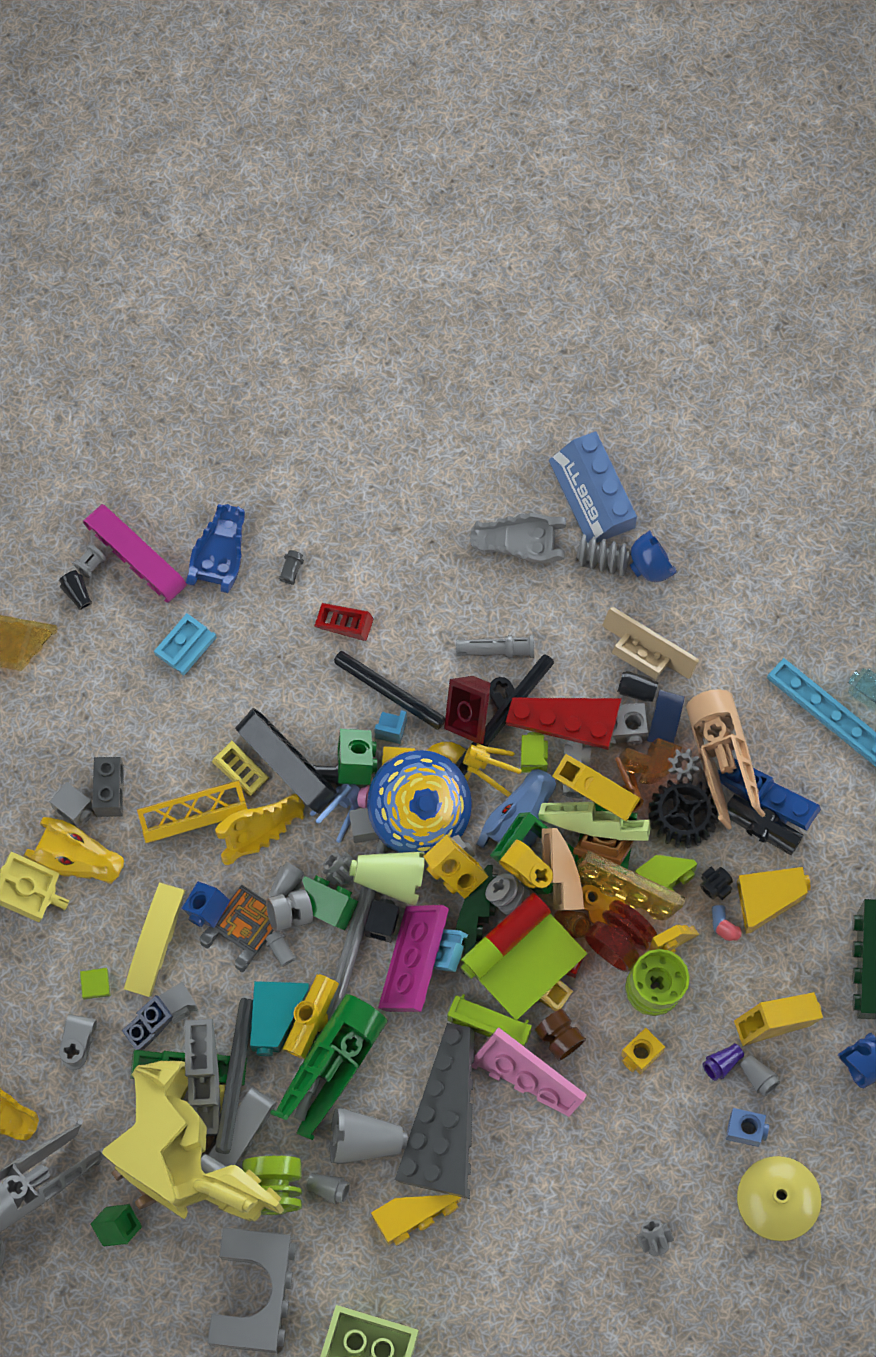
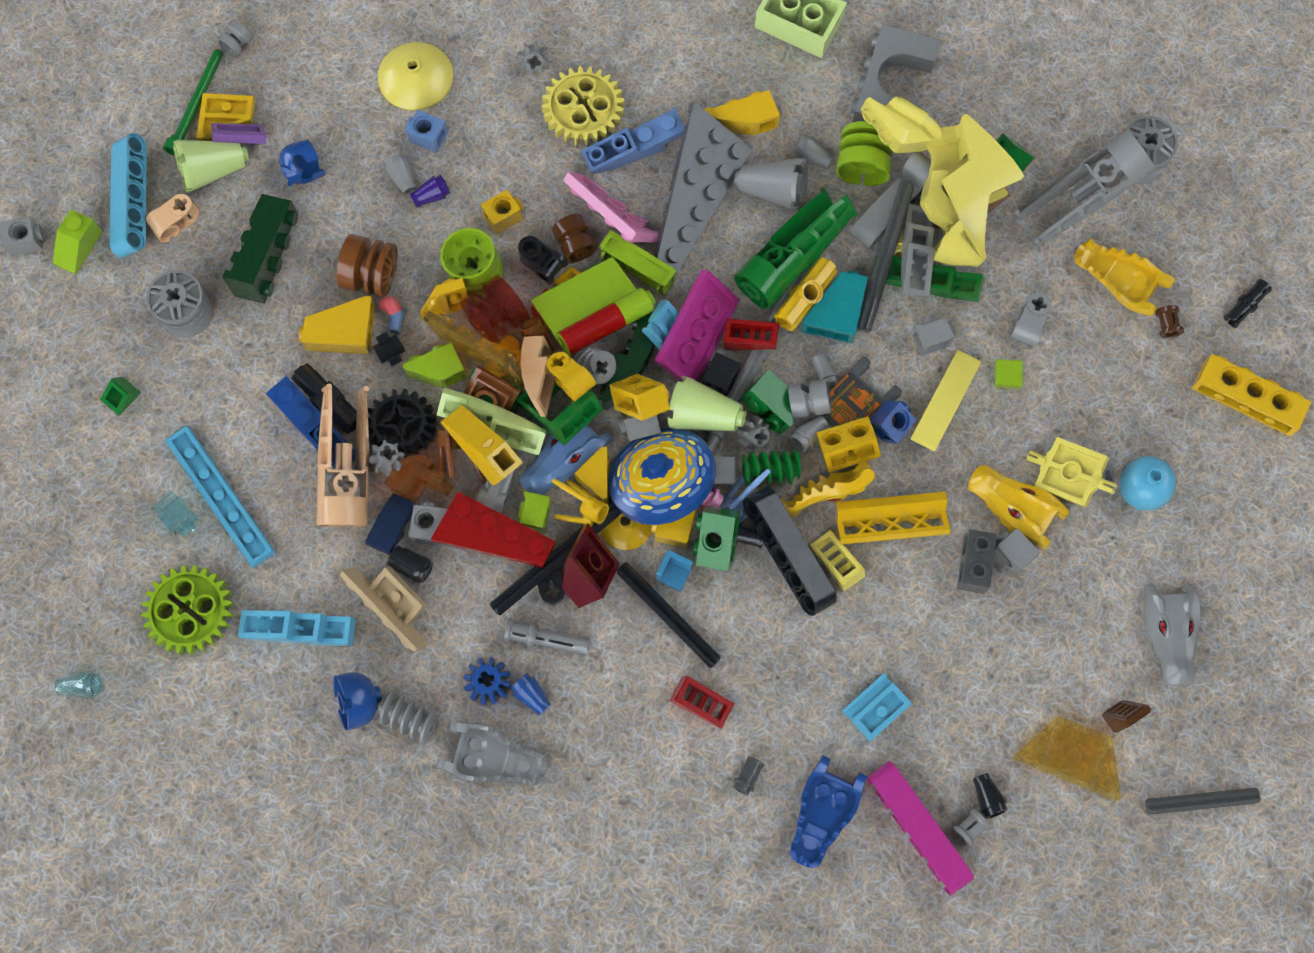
camera: 170 degrees left, 5 degrees up
(148, 1024) = (963, 318): dark blue slope -> none
(244, 864) = (848, 444): none -> yellow brick
(316, 836) = (780, 466): none -> green piece
(379, 956) = (743, 326): none -> red slope
(484, 797) = (594, 475): none -> yellow slope
(499, 597) = (531, 694): none -> blue cone
(522, 1157) = (633, 145): none -> medium blue slope
(539, 607) = (480, 689): none -> blue gear
(569, 1209) = (602, 94): none -> light yellow gear
(588, 1006) = (544, 262): none -> black piece
(593, 488) = (397, 800): medium blue slope -> none
(724, 613) = (297, 627): none -> medium azure slope
(761, 957) = (367, 265): none -> dark orange wheel
(778, 1018) = (368, 214): yellow slope -> none
(818, 627) = (171, 630): none -> lime gear

